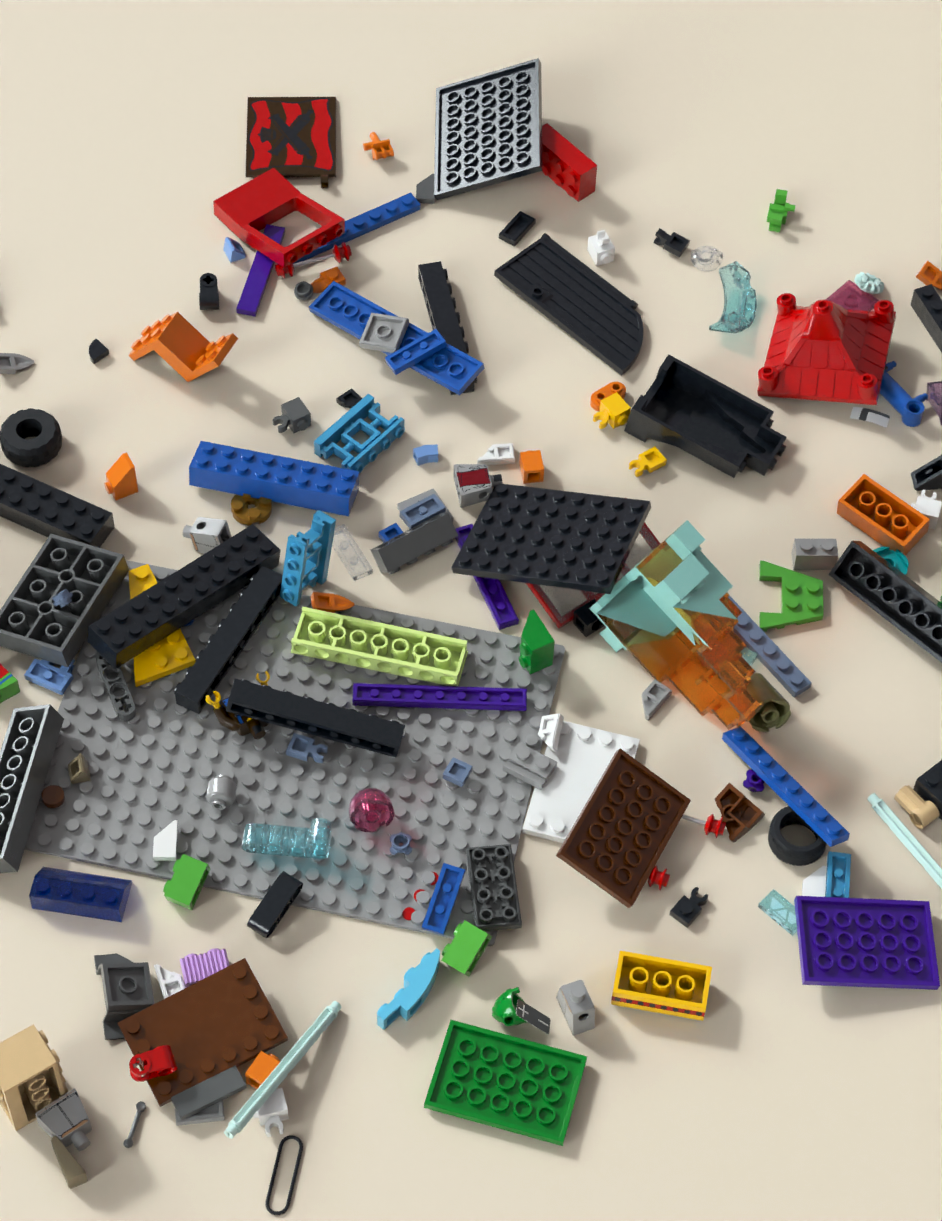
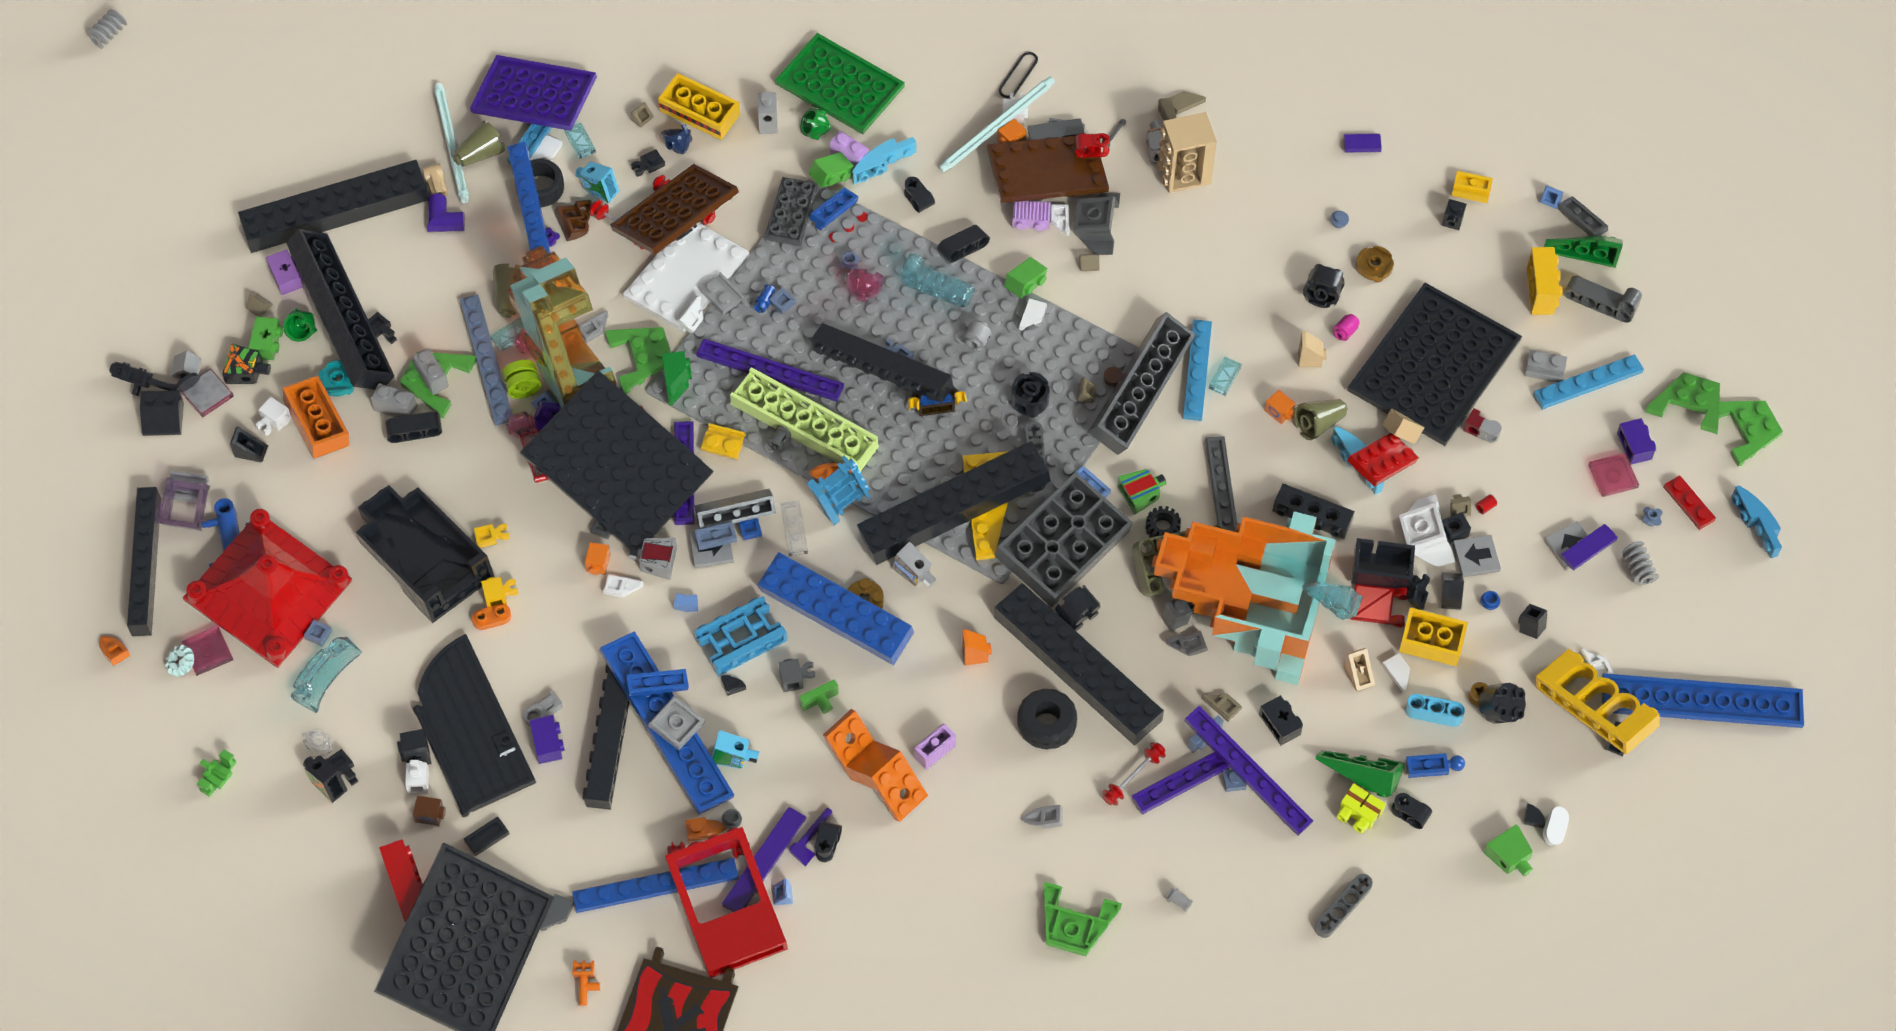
camera: 160 degrees left, 5 degrees up
(24, 539) = (1078, 607): none -> black brick
(53, 1199) = (1186, 101): none -> dark tan tile
(62, 598) = (1062, 514): sand blue plate -> none
(80, 894) = (1110, 298): clear blue slope -> none
(97, 351) = (956, 810): black tile -> none
(120, 939) = (1089, 262): none -> dark tan slope
(133, 385) = (934, 746): none -> lavender brick
(139, 737) = (1030, 394): none -> black brick
(229, 640) = (927, 462): black brick -> none
(232, 287) = (798, 849): none -> dark purple piece
(260, 404) = (820, 696): none -> bright green tile
(324, 334) = (732, 750): none -> medium azure torso
(352, 956) = (918, 194): none -> black piece
(399, 617) = (779, 438): none -> dark grey bush
(455, 986) = (848, 147): none -> lavender brick
(457, 612) = (723, 441): none -> yellow plate
(479, 769) = (762, 301): none -> blue pin
(501, 306) = (546, 740): none -> dark purple brick
(516, 333) = (546, 707): none -> light grey piece
(533, 1016) = (802, 113): dark grey sticker -> none
(576, 228) = (428, 810): none -> reddish brown brick
(581, 684) = (647, 350): none -> bright green wing
(613, 260) = (414, 746): none -> black brick
(670, 938) = (677, 139): none -> dark blue helmet
(683, 222) = (320, 772): none -> black torso
(727, 965) = (641, 115): none -> dark tan slope
(733, 854) = (598, 181): none -> medium azure torso
(759, 337) = (318, 633): none -> sand blue plate
(780, 538) = (413, 427): none -> black beam
(793, 582) = (430, 371): none -> light grey brick
(878, 629) = (382, 326): none -> black plate
(885, 767) = (439, 219): none -> dark purple brick
(888, 853) = (479, 145): none -> olive cone

